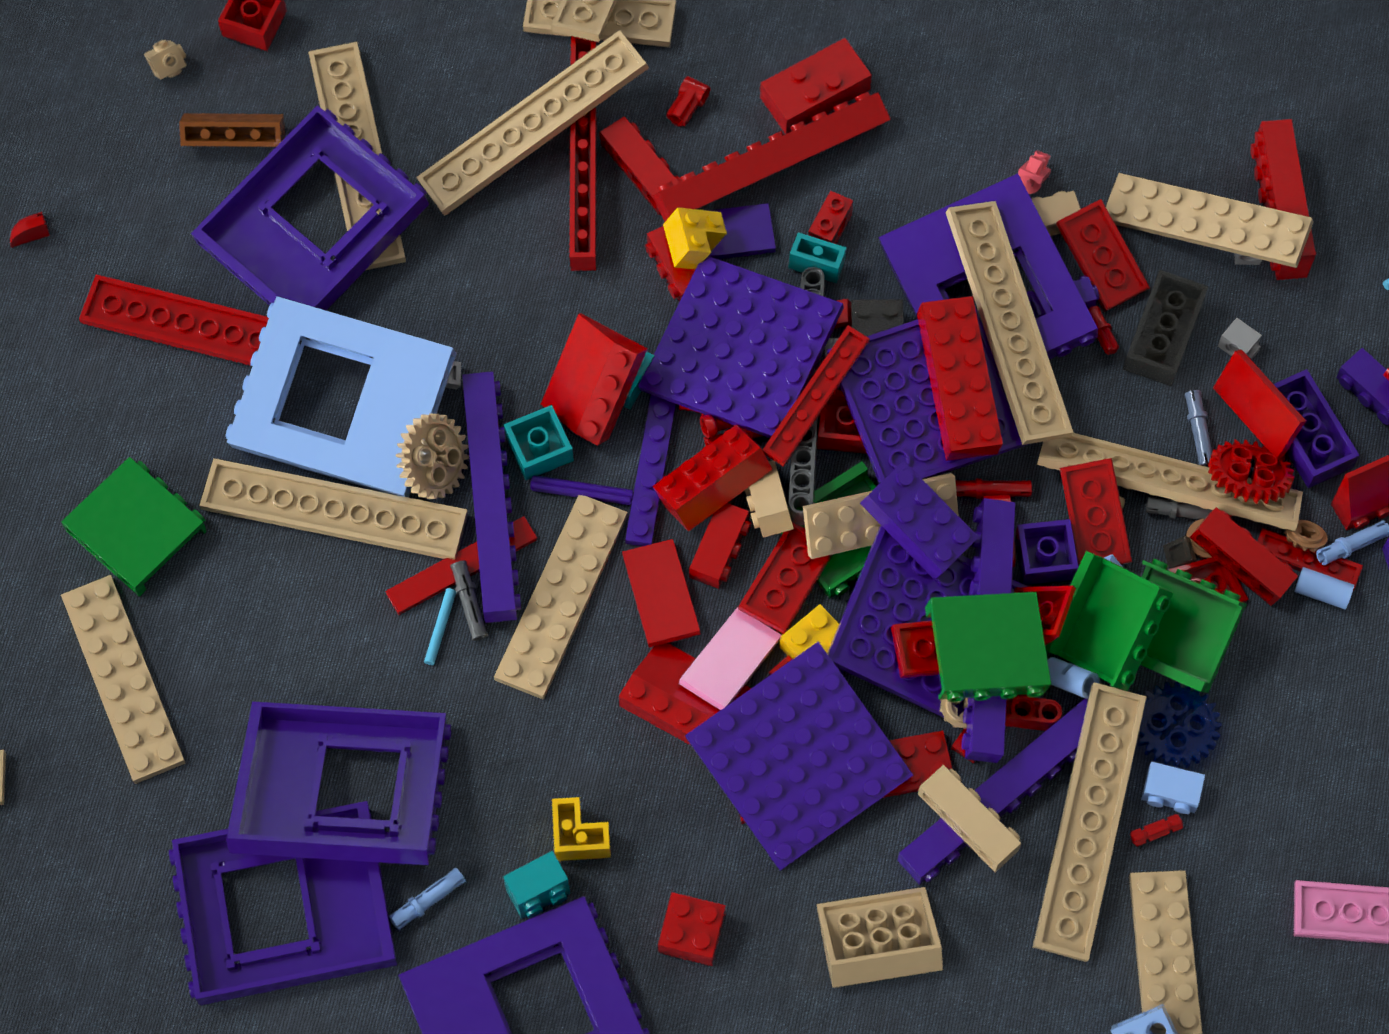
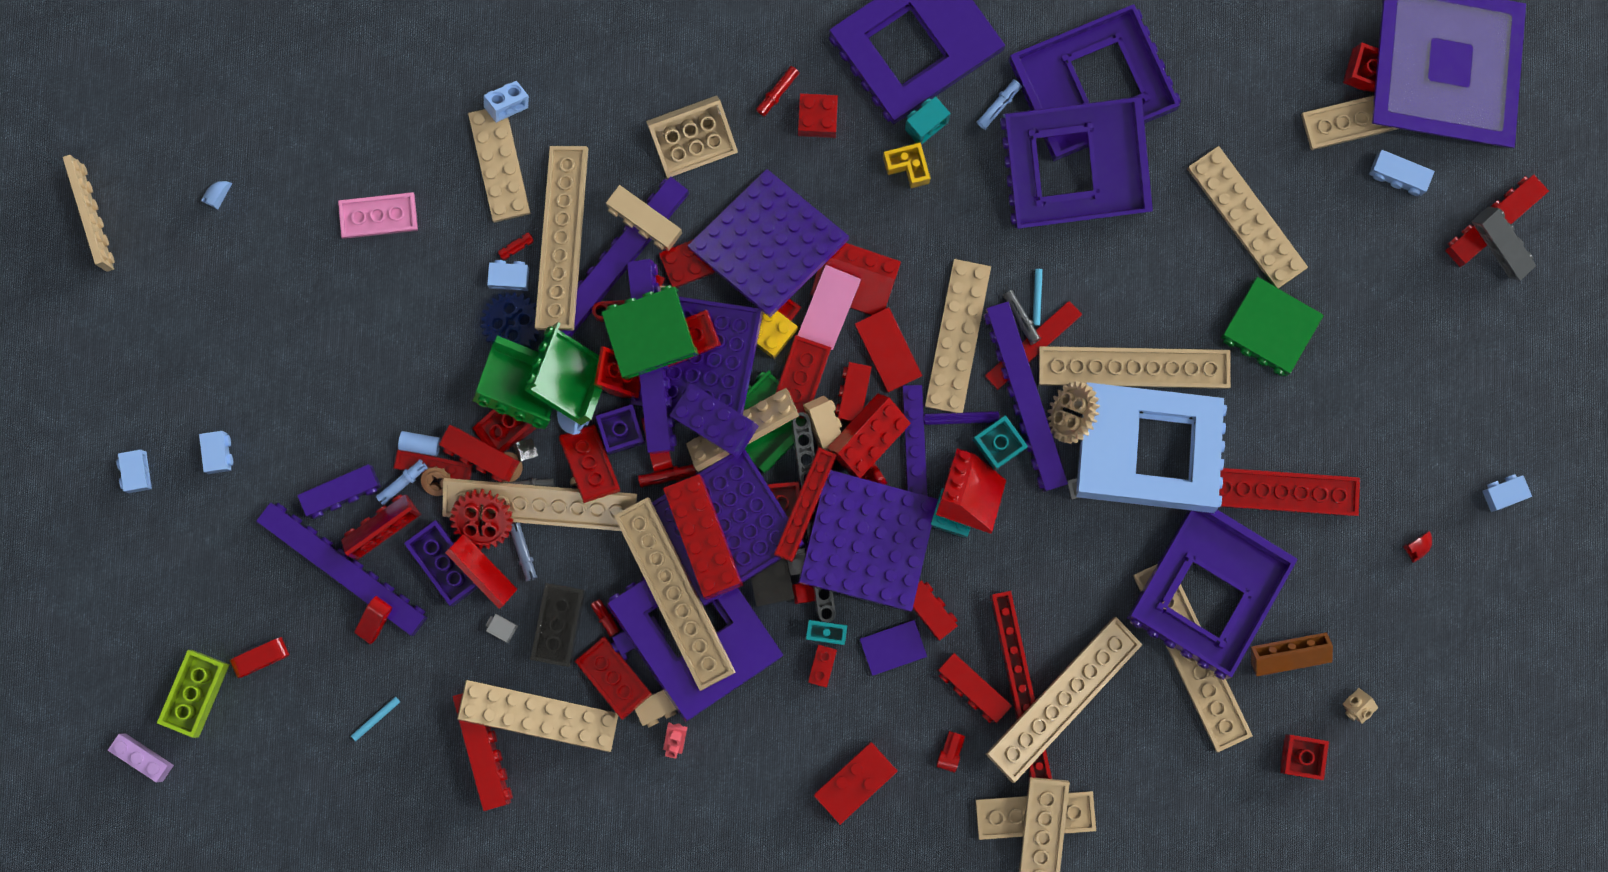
camera: 165 degrees right, 15 degrees up
(693, 235) = (926, 624): yellow brick -> none
(752, 971) = (772, 97): none -> red pin
(773, 156) = (876, 709): red brick -> none
(1071, 677) = (589, 336): light blue pin -> none

